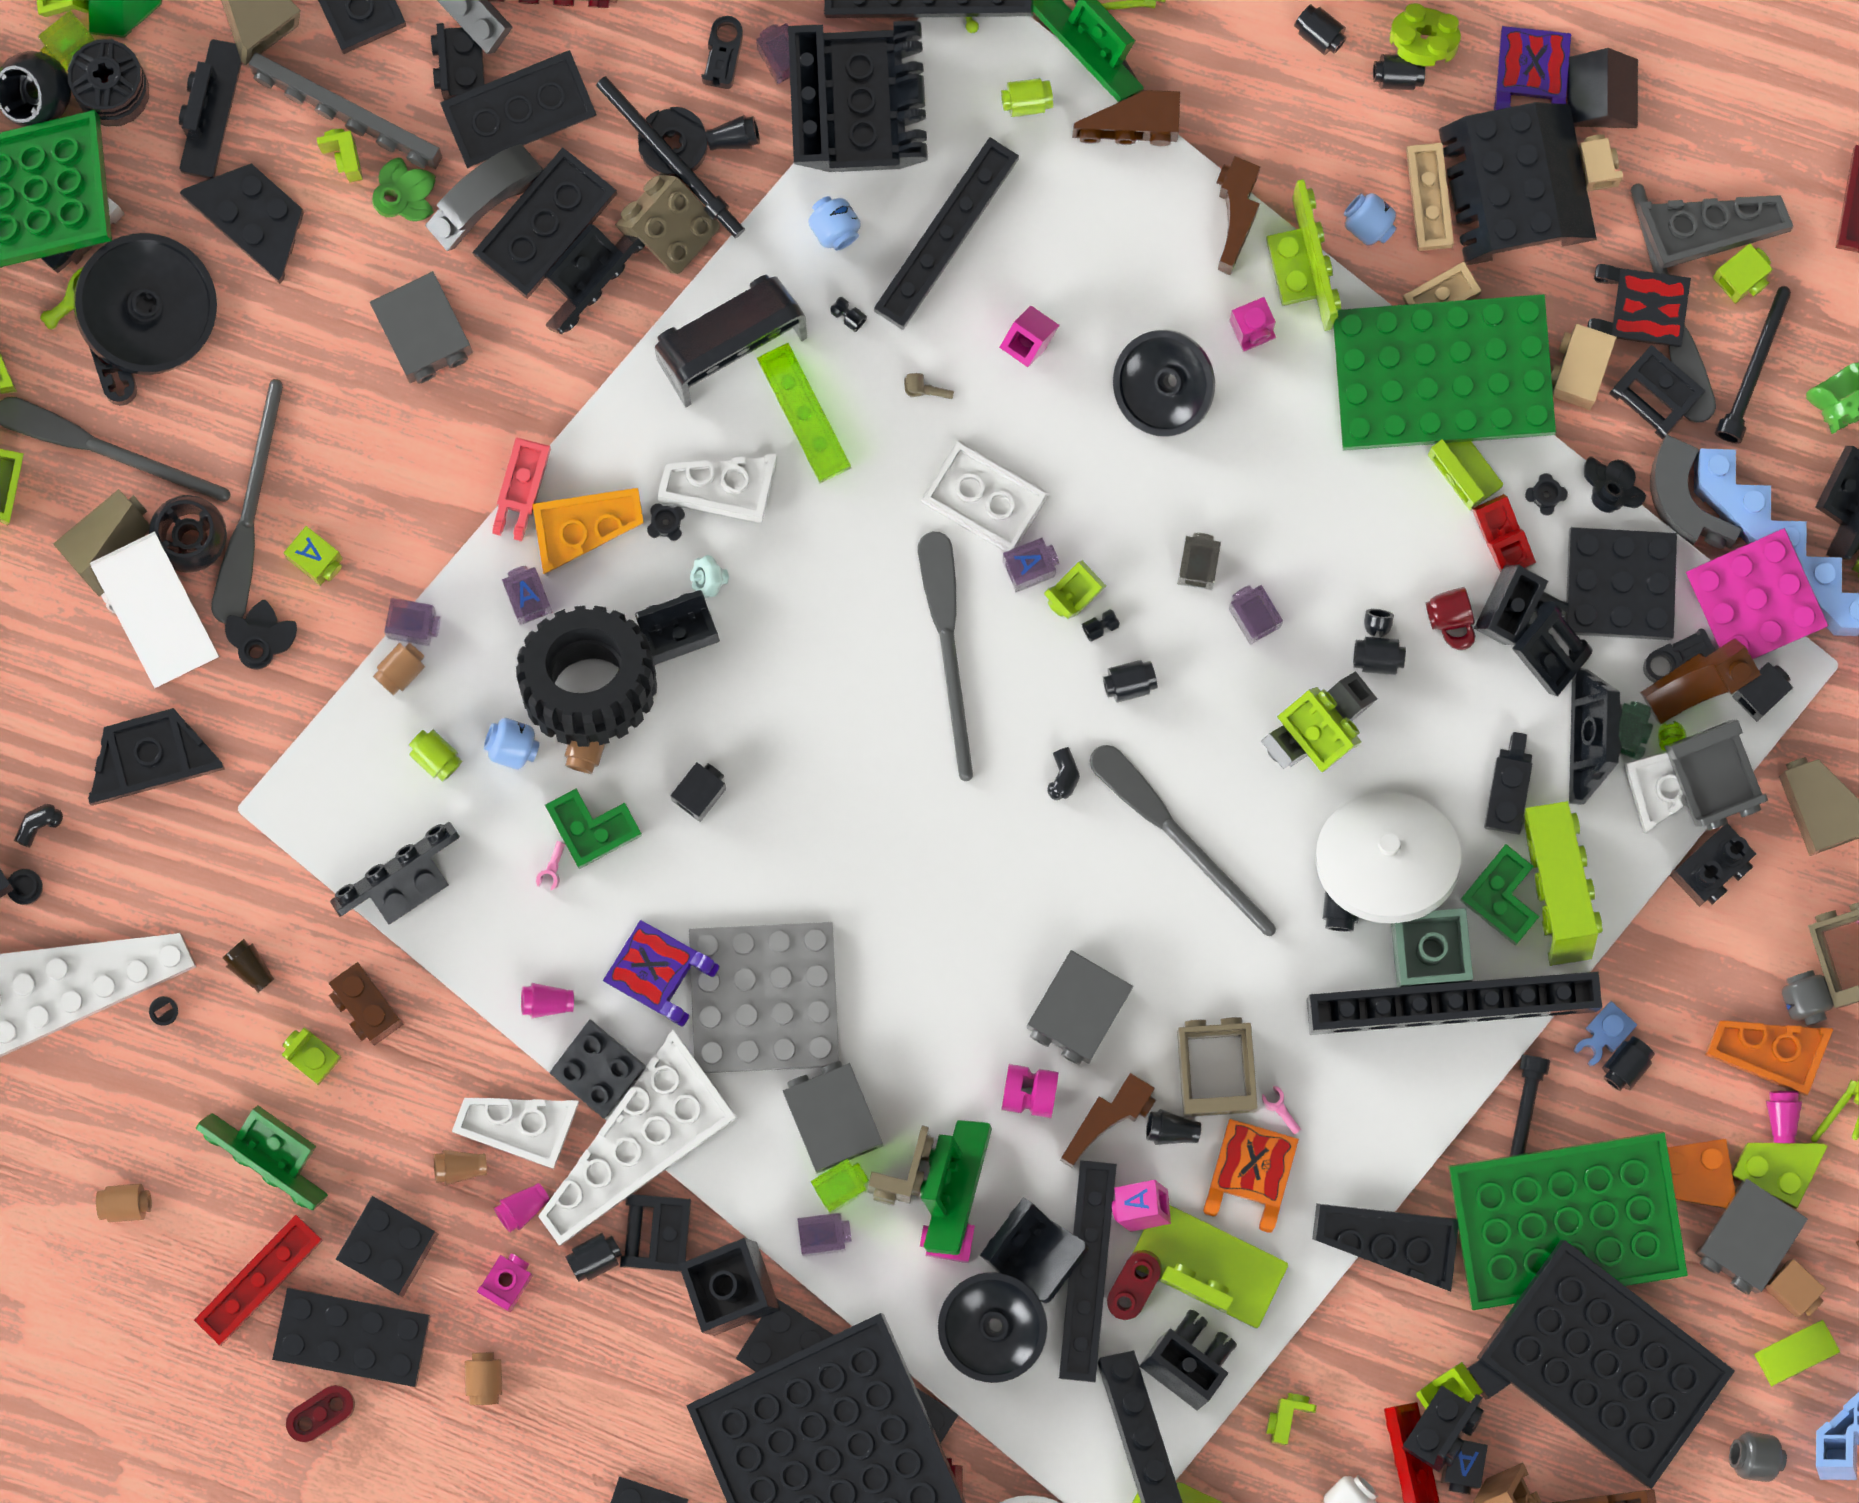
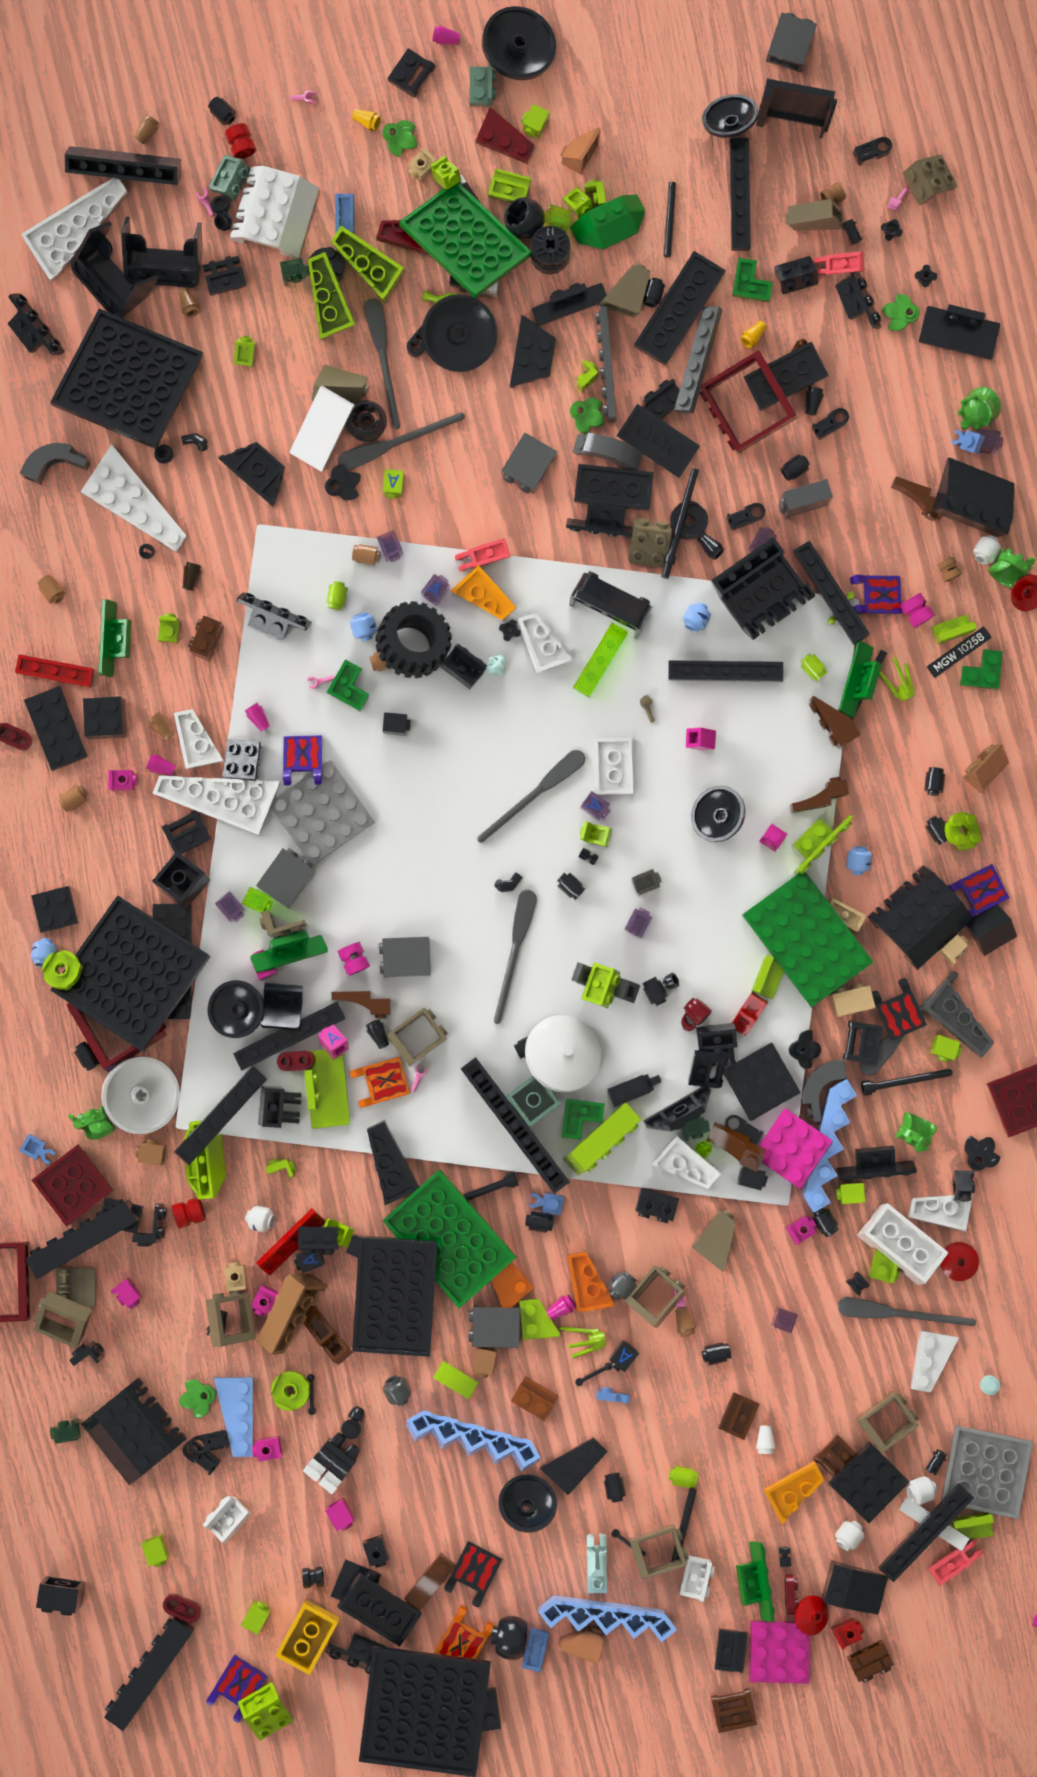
camera: 55 degrees right, 5 degrees up
(594, 1257) = (157, 812): black brick -> none
(853, 318) = (659, 654): black piece -> none
(1429, 196) = (888, 881): tan plate -> none
(1548, 484) = (784, 1017): black plate -> none
(1715, 775) = (697, 1180): dark grey panel -> none

